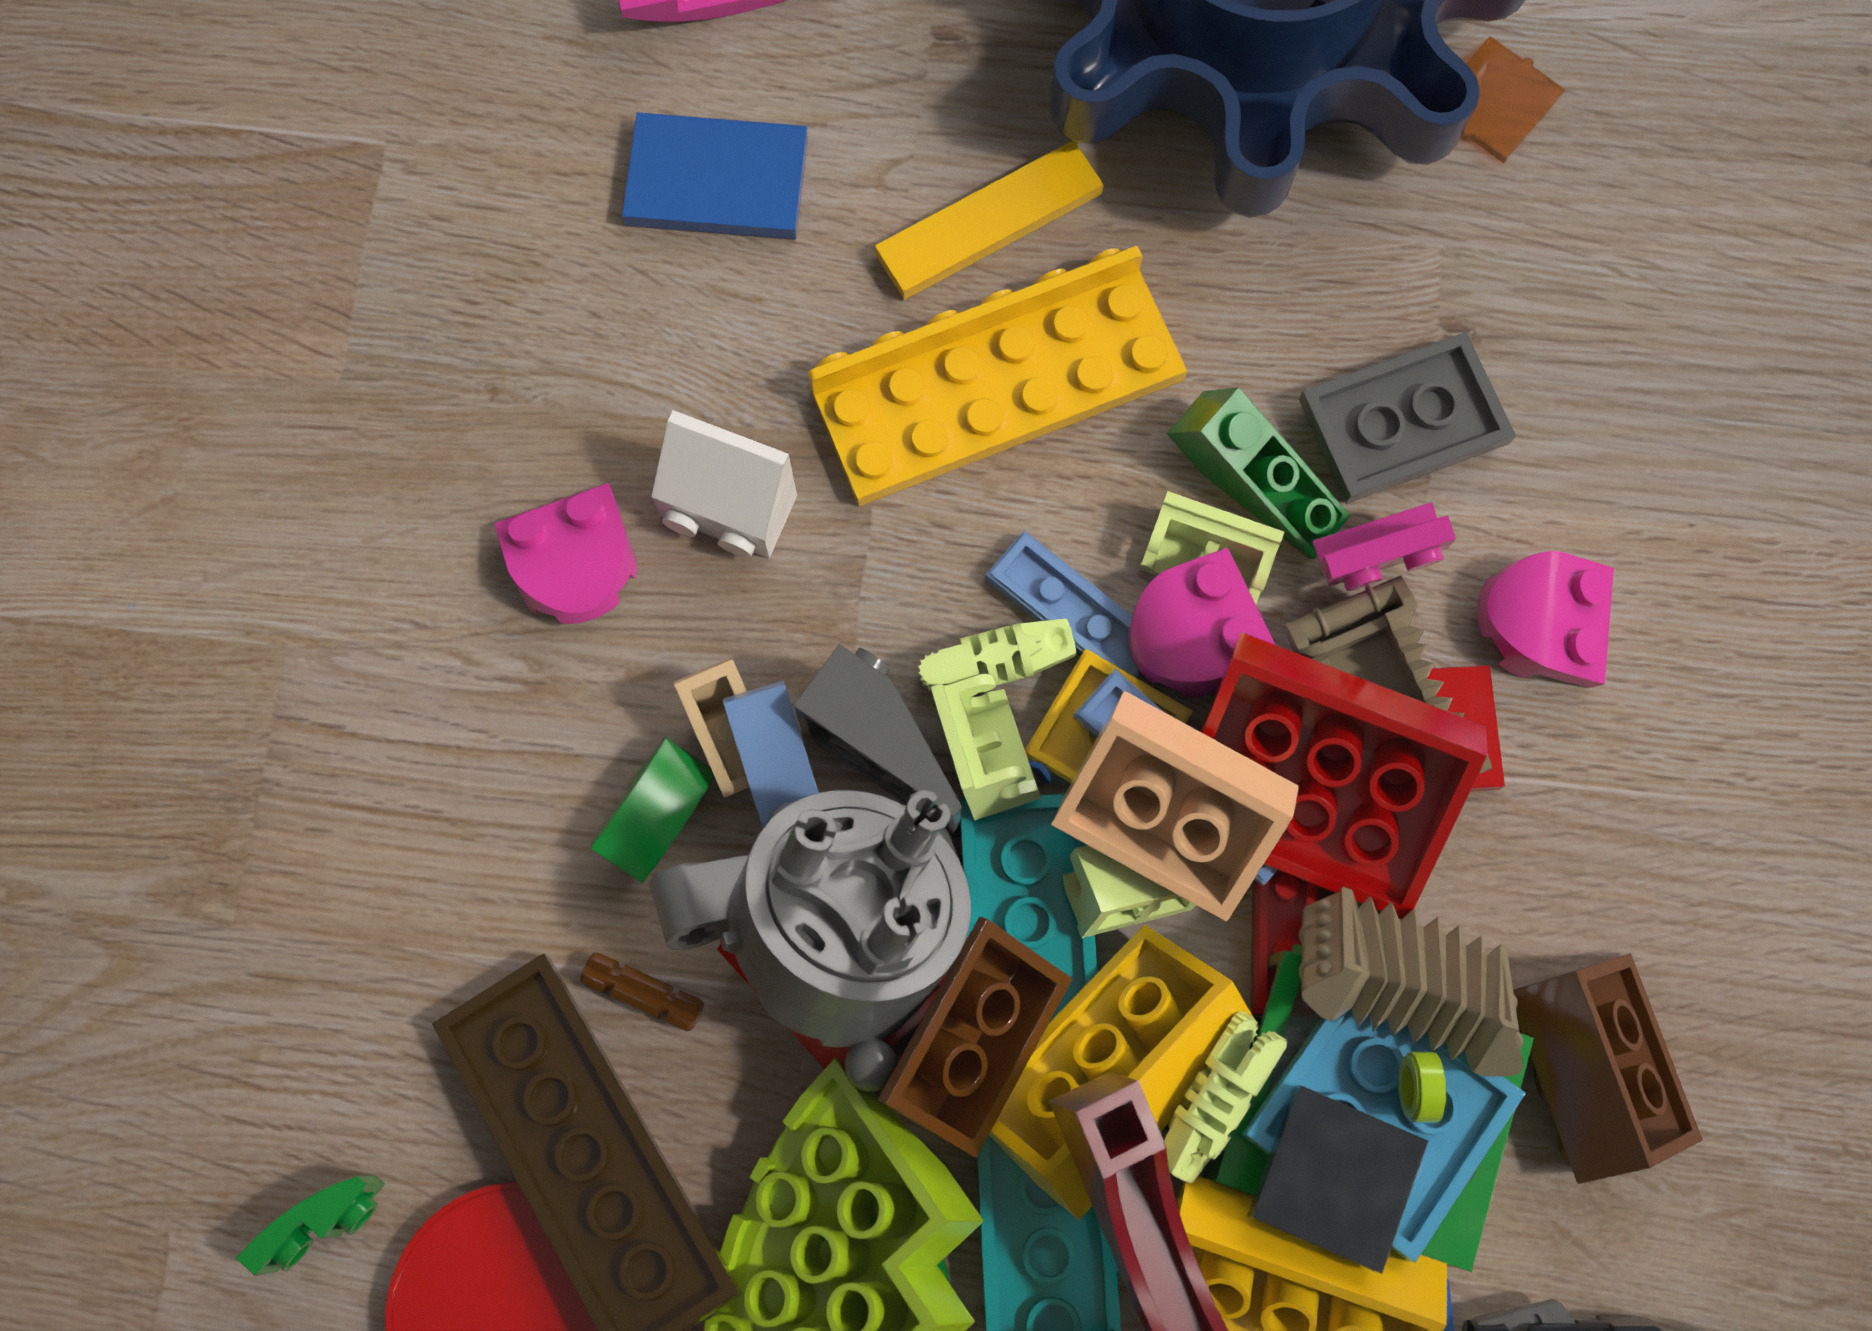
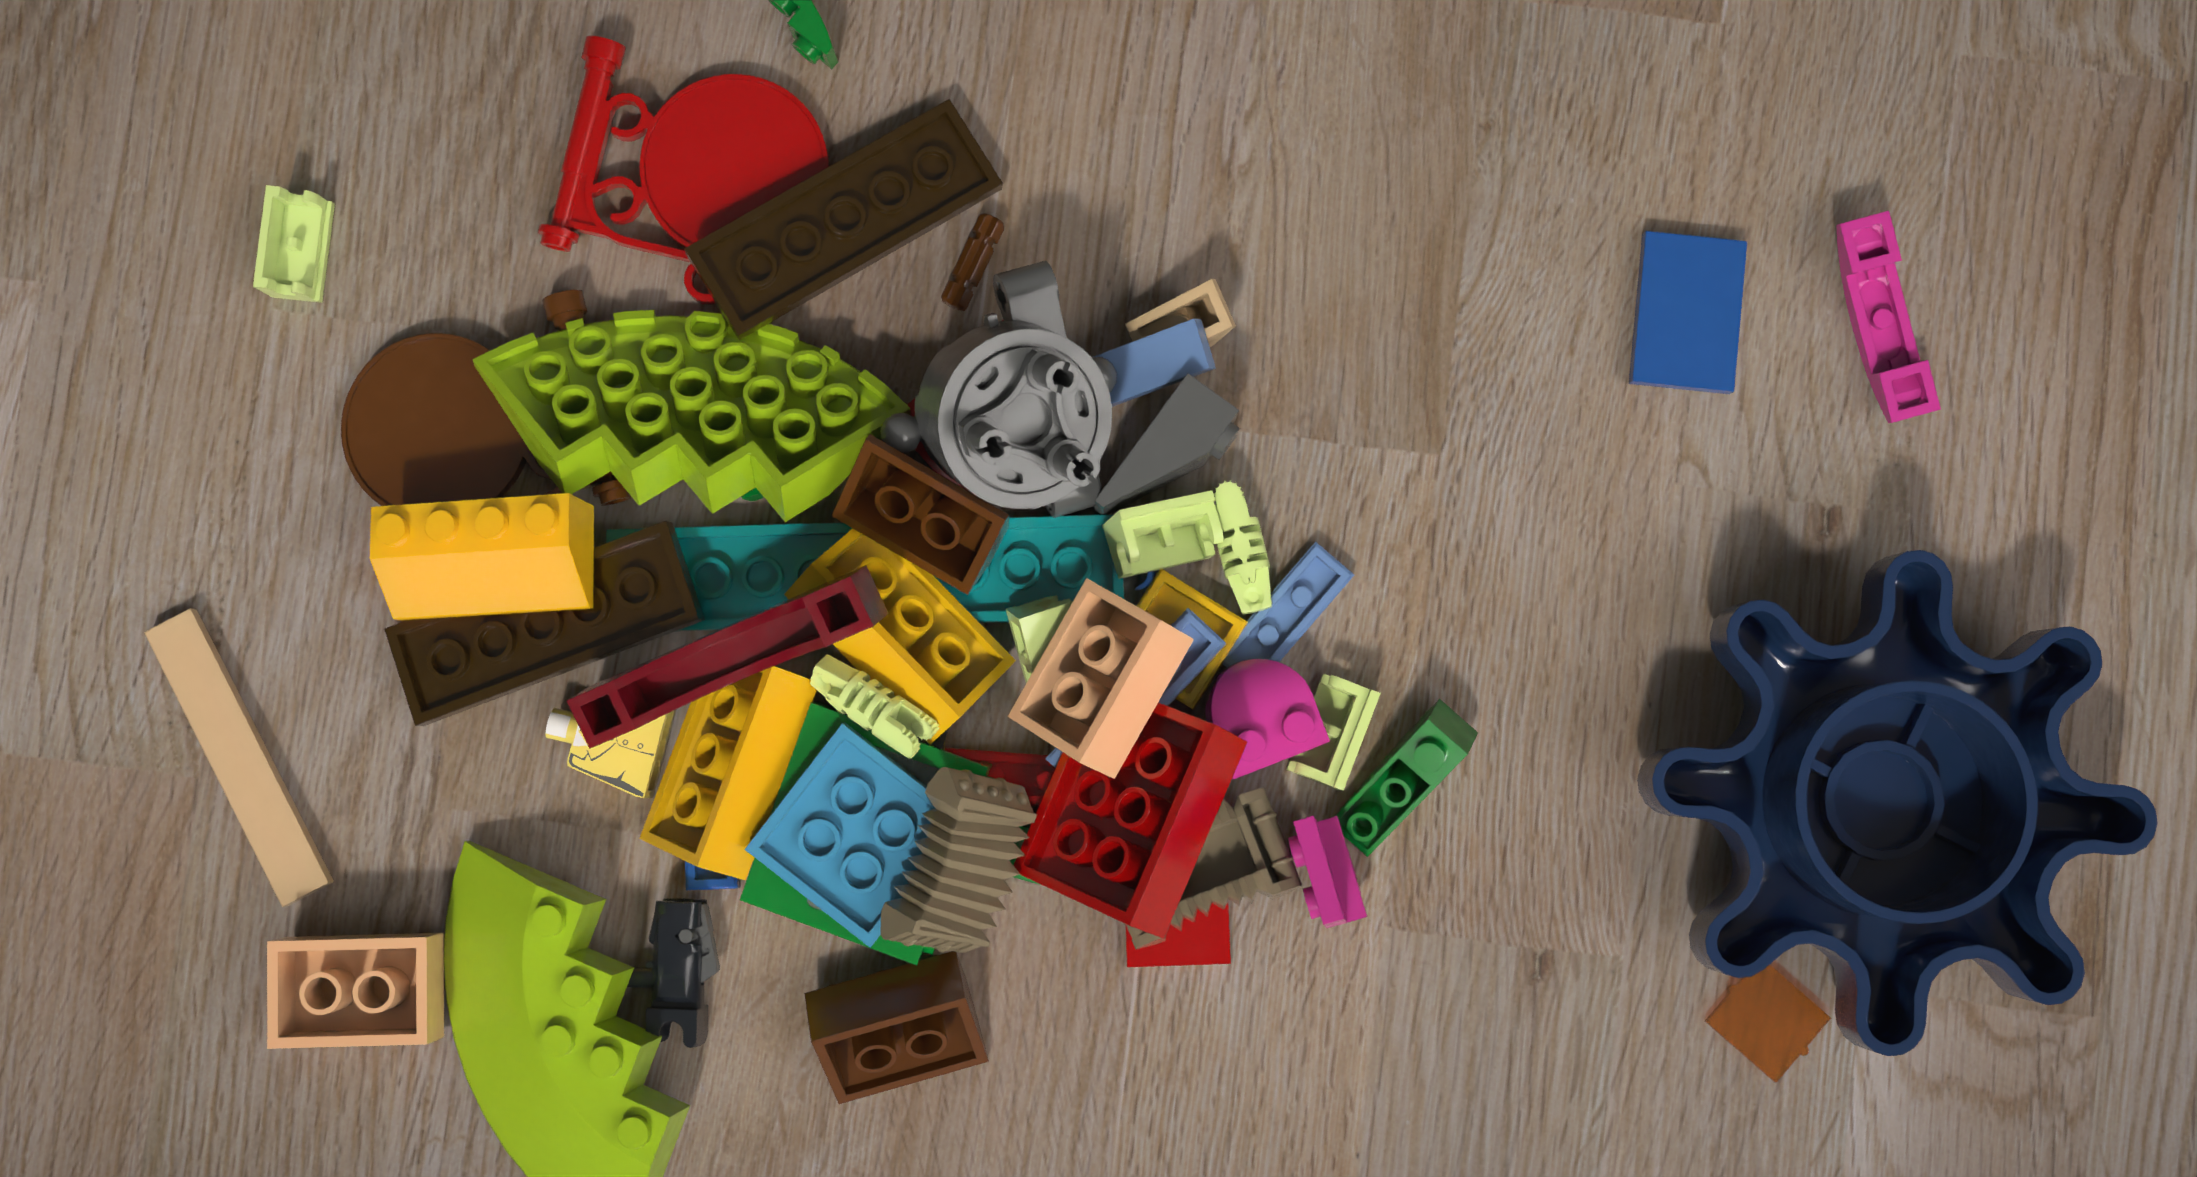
camera: 90 degrees right, 10 degrees up
(569, 555) = (1335, 194): dark pink slope -> none
(653, 809) = (1117, 268): green slope -> none
(723, 486) = (1387, 318): white slope -> none
(988, 219) = (1645, 552): yellow tile -> none
(994, 375) = (1496, 555): yellow bracket -> none
(1338, 1178) = (806, 790): black tile -> none
(1406, 417) = (1454, 909): dark grey plate -> none
(1422, 1087) = (872, 858): lime tile -> none
(1550, 617) = (1272, 1019): dark pink slope -> none

